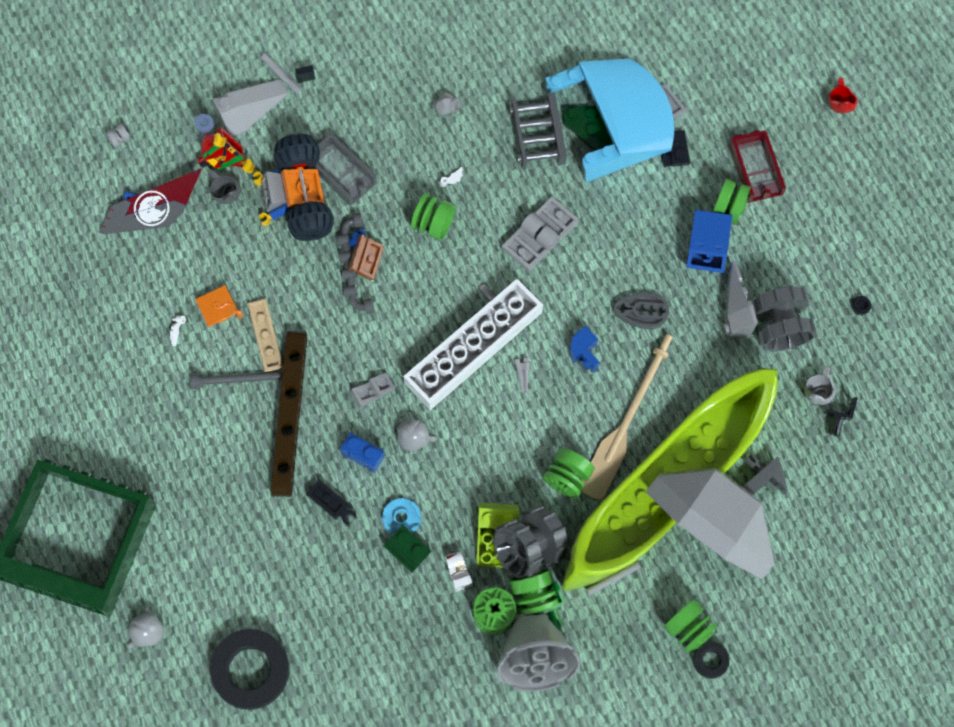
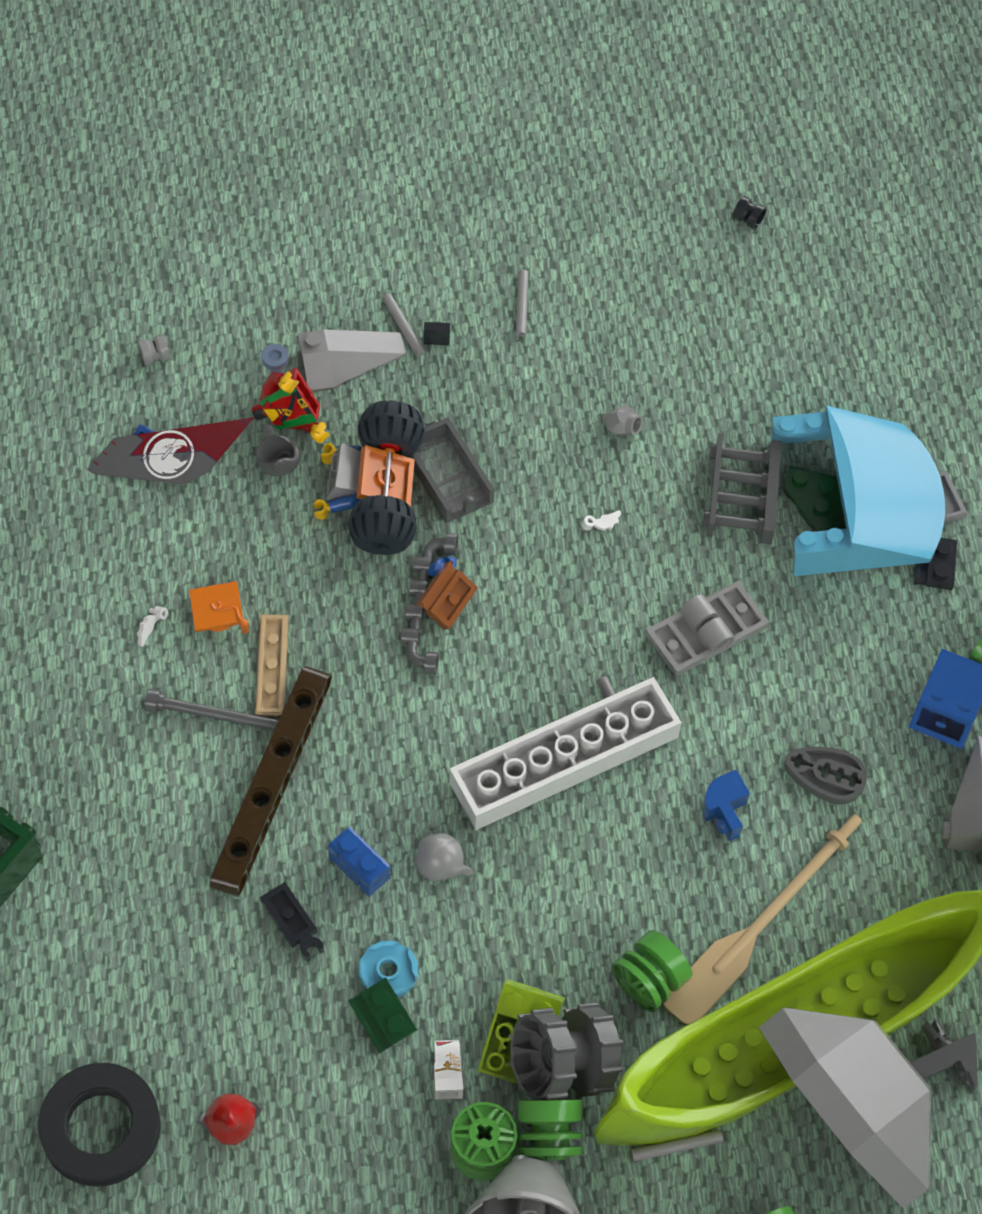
camera: 15 degrees right, 10 degrees down
(331, 641) = (230, 1118): none -> red hat
(355, 36) = (522, 293): none -> light grey piece
(373, 390) = (399, 781): light grey slope -> none
(430, 215) = (558, 563): bright green wheel -> none
(523, 373) = (626, 814): light grey piece -> none
(553, 614) = (570, 1166): green bracket -> none

